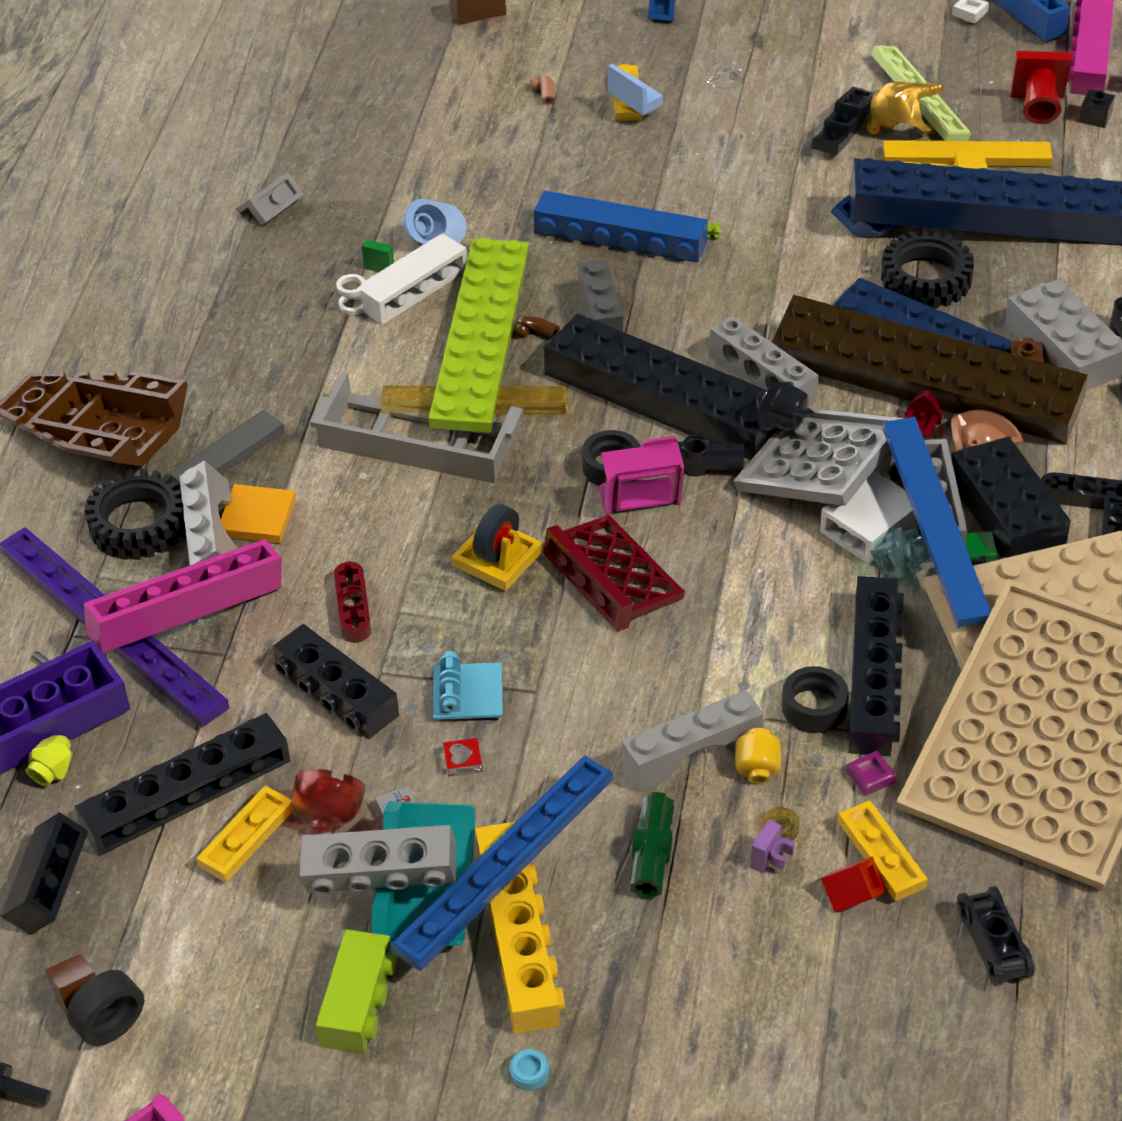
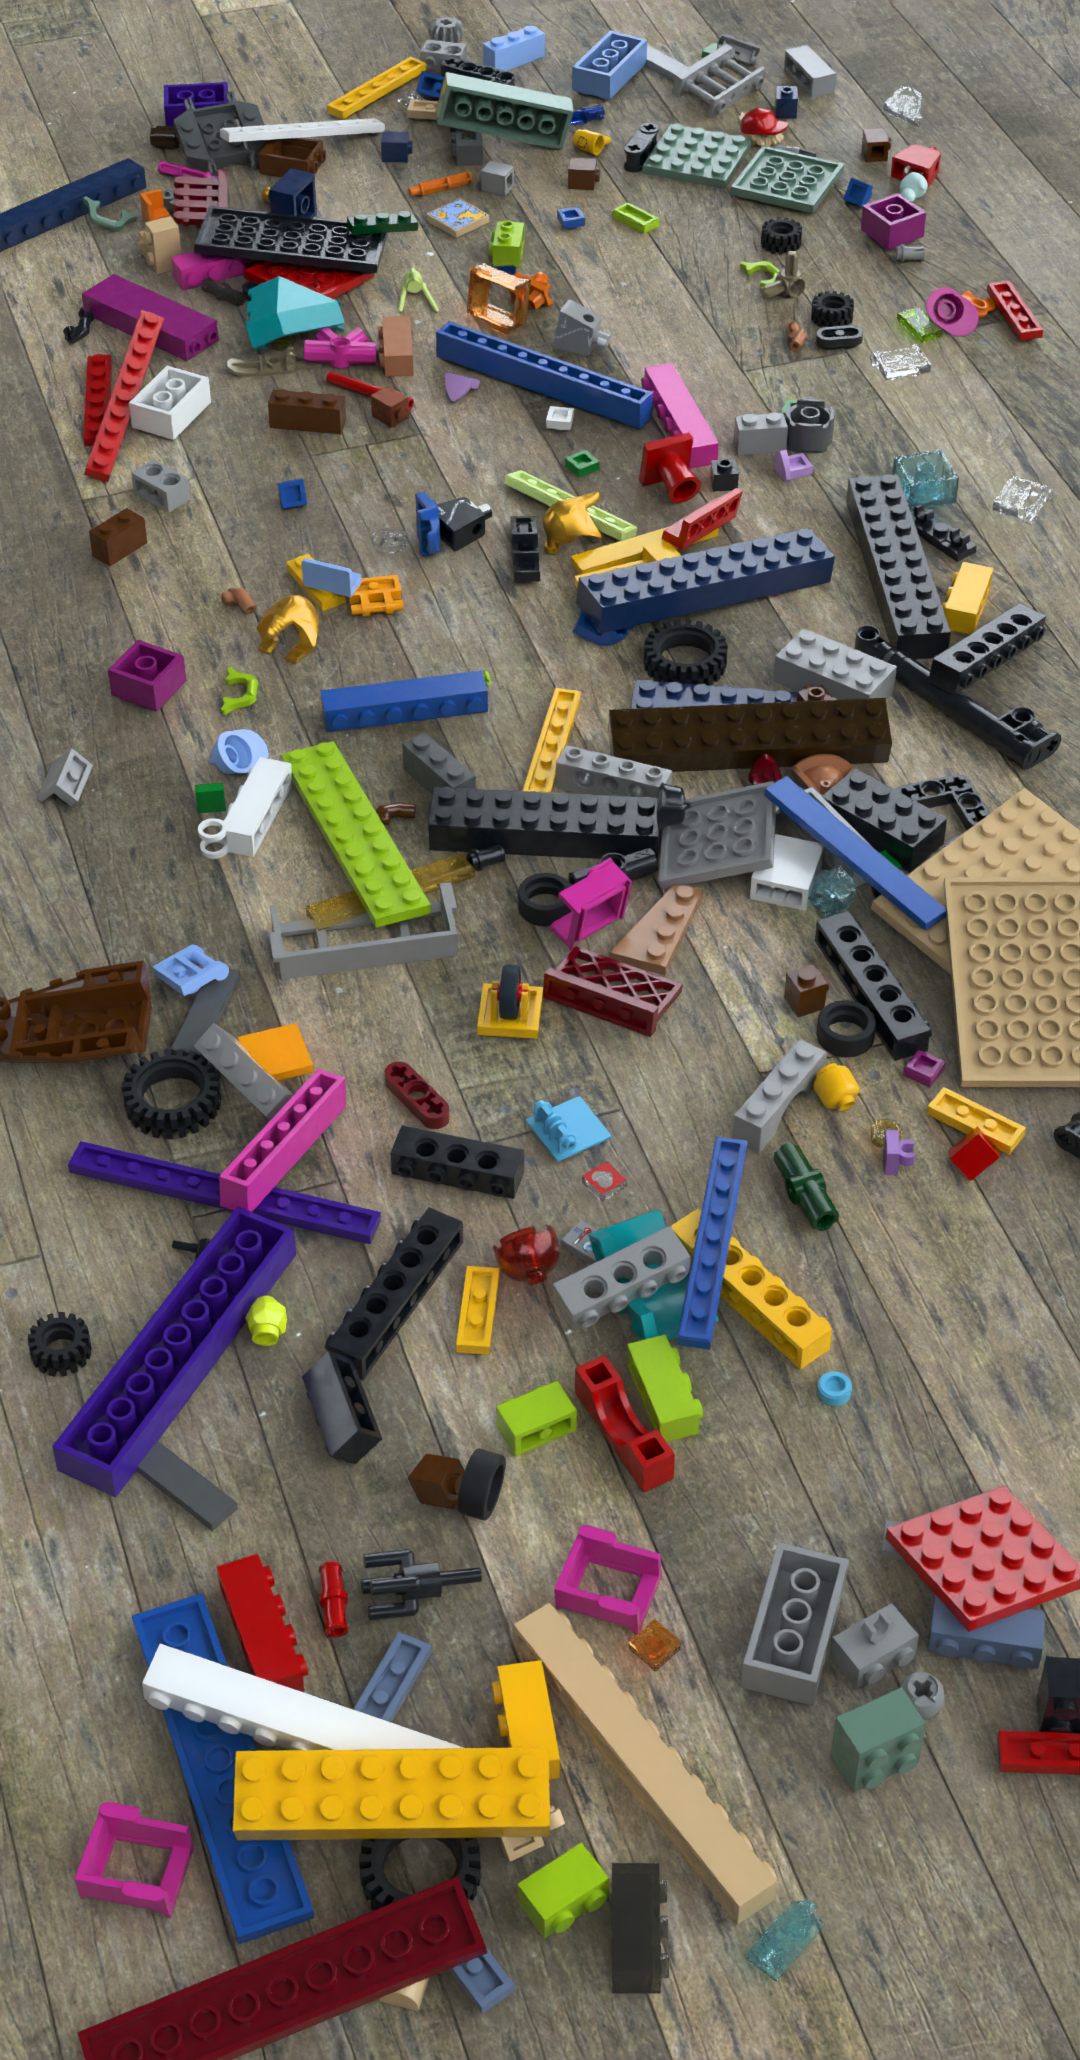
camera: 30 degrees left, 0 degrees up
(214, 965) = (536, 1418): none -> lime brick
(228, 409) = (182, 973): none -> light blue plate
(289, 985) = (641, 1451): none -> red arch
(404, 128) = (147, 675): none -> magenta brick
(486, 179) = (248, 699): none -> lime helmet
(576, 115) = (293, 611): none -> pearl gold piece
(586, 398) = (485, 857): none -> black pin
(672, 115) = (377, 589): none -> light orange plate
(703, 531) = (660, 931): none -> medium nougat wing
(742, 305) = (552, 740): none -> yellow tile
(757, 70) = (427, 524): none -> blue slope
(799, 76) = (462, 522): none -> black torso
(800, 643) = (806, 990): none -> reddish brown brick
(963, 57) = (582, 463): none -> green tile
(1036, 143) = (703, 520): none -> red fence

